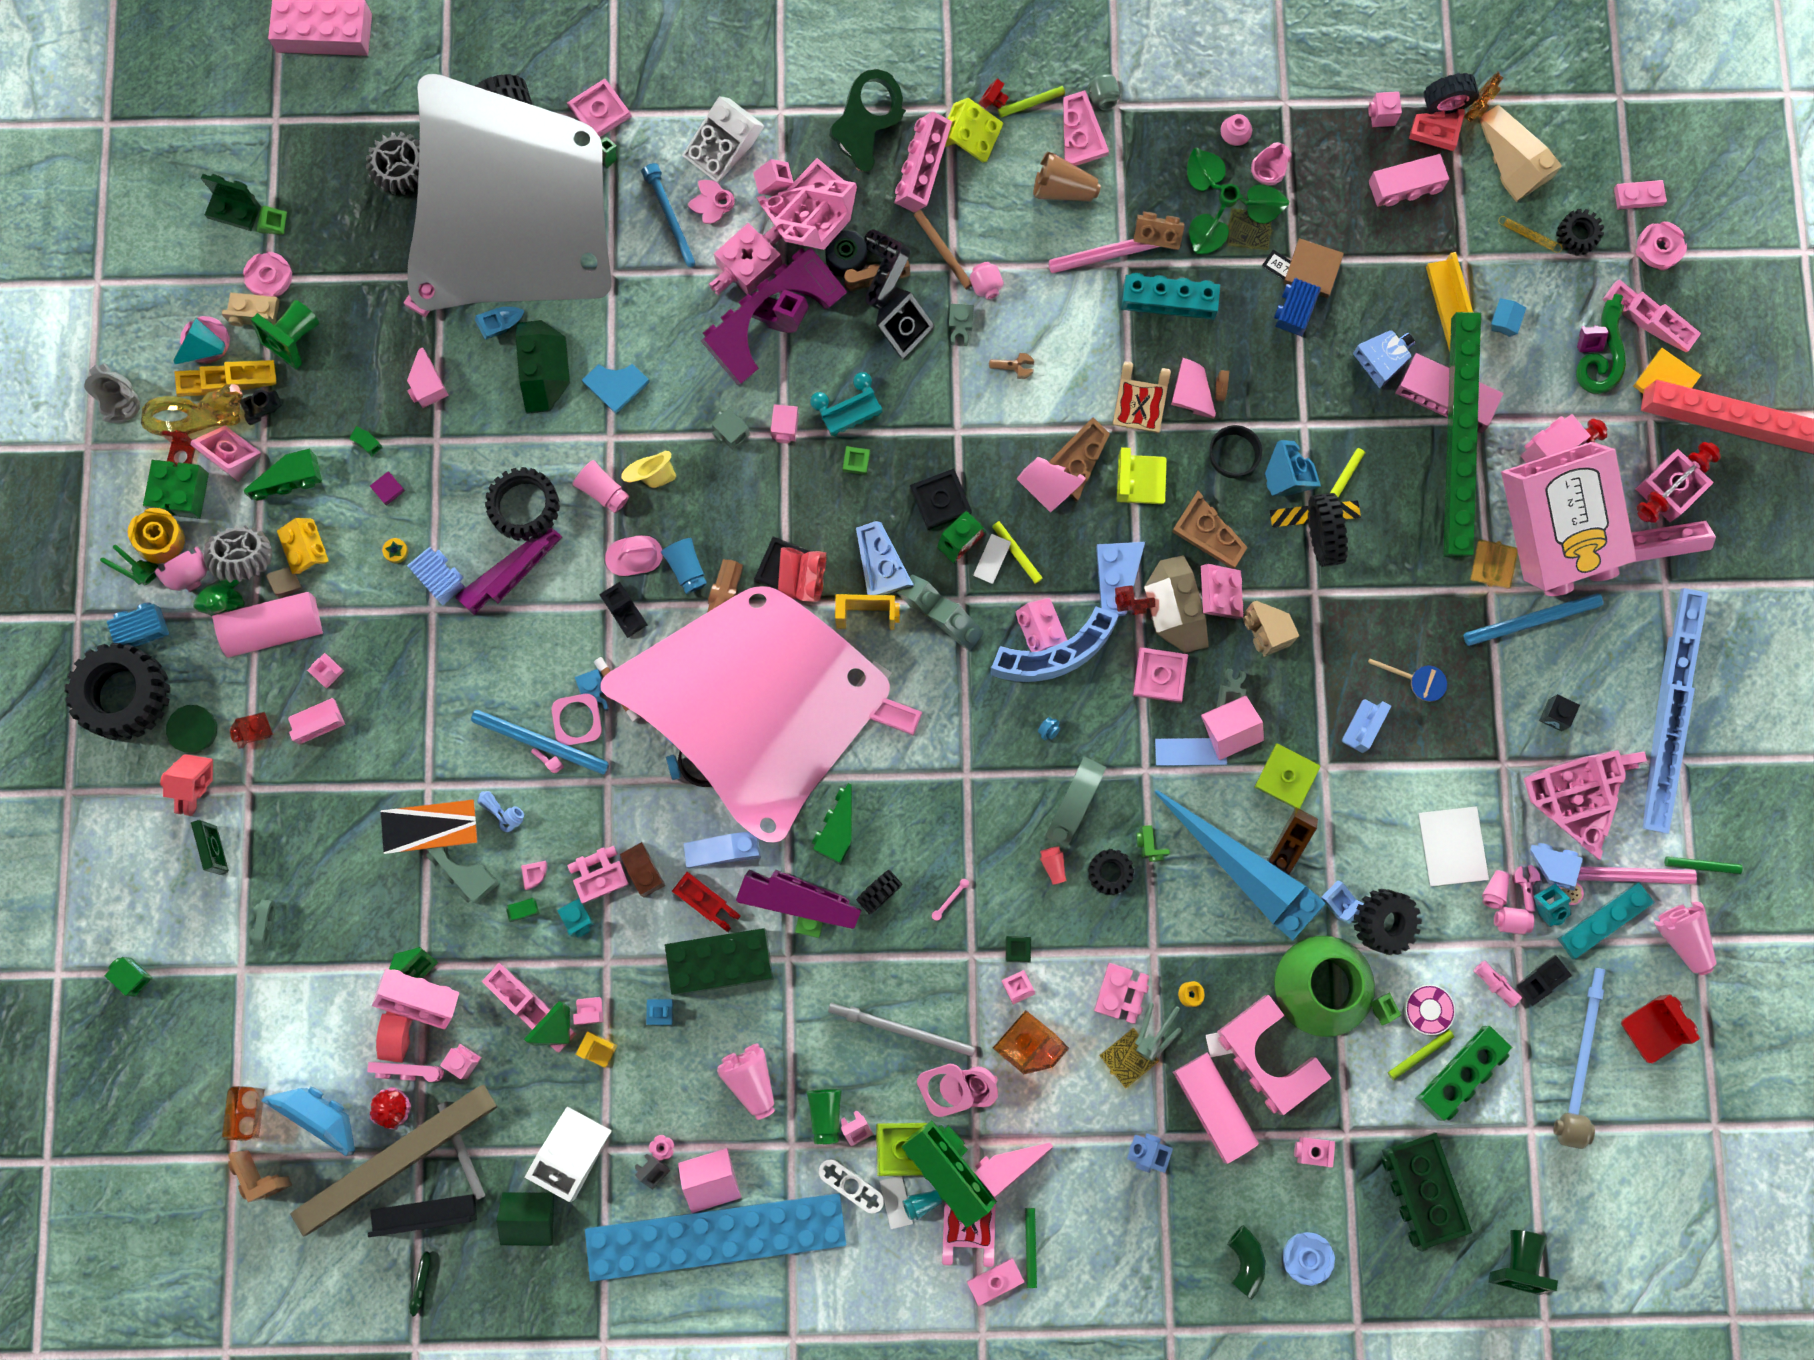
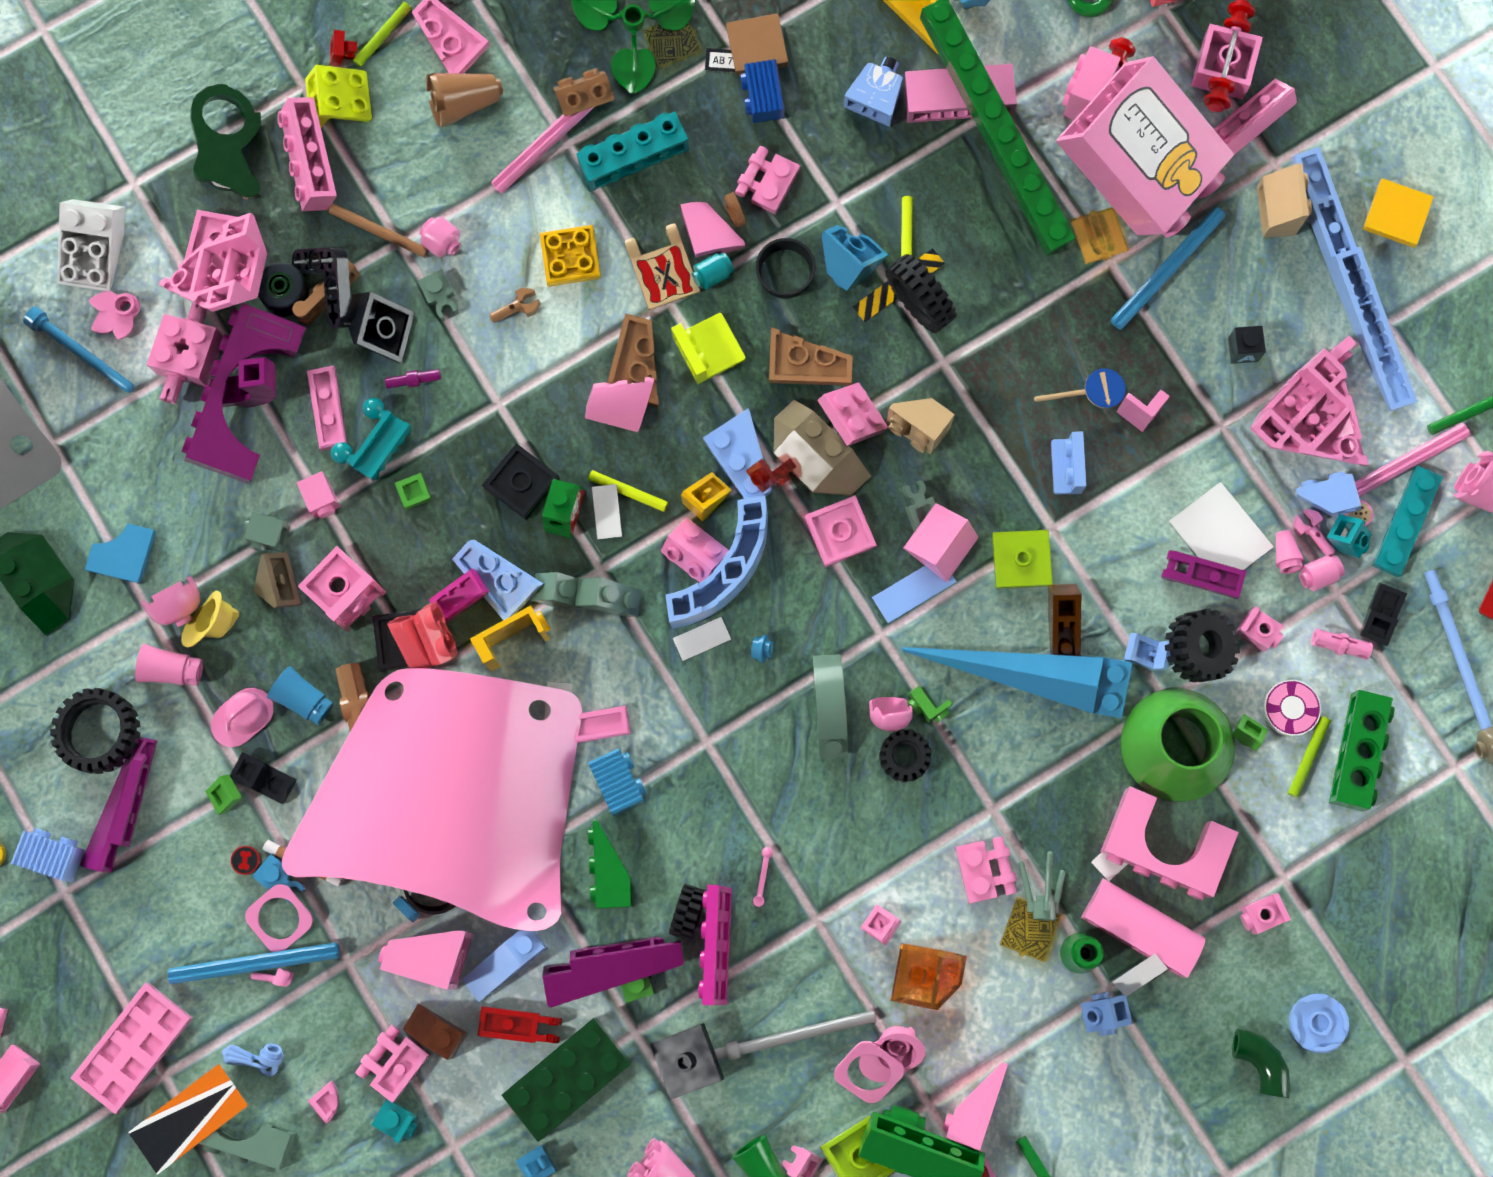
camera: 25 degrees left, 0 degrees up
(417, 751) = (131, 1048): none -> bright pink plate
(522, 909) = (335, 1145): green piece -> none
(576, 663) = (246, 860): none -> tile
(588, 604) = (223, 794): none -> bright green plate
(632, 443) = (174, 604): none -> bright pink cylinder
(669, 812) = (428, 958): none -> bright pink slope
(716, 469) = (276, 581): none -> dark tan slope
(767, 515) = (355, 598): none -> bright pink bracket
(773, 177) = (163, 254): bright pink brick -> none
(814, 1001) = (687, 1061): none -> plate
(828, 360) = (327, 407): none -> bright pink tile
(847, 558) = (460, 594): none -> dark pink plate
(882, 765) = (616, 781): none -> dark azure brick
(891, 921) = (716, 932): none -> dark pink plate
(904, 376) = (413, 378): none -> magenta bar
(1008, 695) = (701, 638): none -> white sticker
(1018, 949) = (858, 886): dark green tile -> none
(1054, 864) = (844, 780): coral cone -> none
(1073, 589) = (705, 495): none -> yellow slope
(1076, 349) = (570, 255): none -> yellow tile
(1118, 833) = (890, 713): none -> bright pink hair
(1148, 1098) = (1071, 955): none -> green plant
(1178, 422) = (712, 270): none -> teal brick
(1191, 994) = (1054, 830): yellow tile -> none
(1192, 1140) = (1140, 975): none -> white sticker
(1263, 383) = (775, 183): none -> bright pink plate
(1421, 869) = (1204, 574): none -> magenta plate
(1426, 1191) = (1392, 889): dark green bracket -> none
(1431, 935) = (1250, 630): none -> bright pink brick
(1443, 717) = (1140, 414): none -> bright pink panel
(1654, 619) = (1283, 201): none -> tan slope
(1741, 679) = (1398, 213): none -> yellow tile

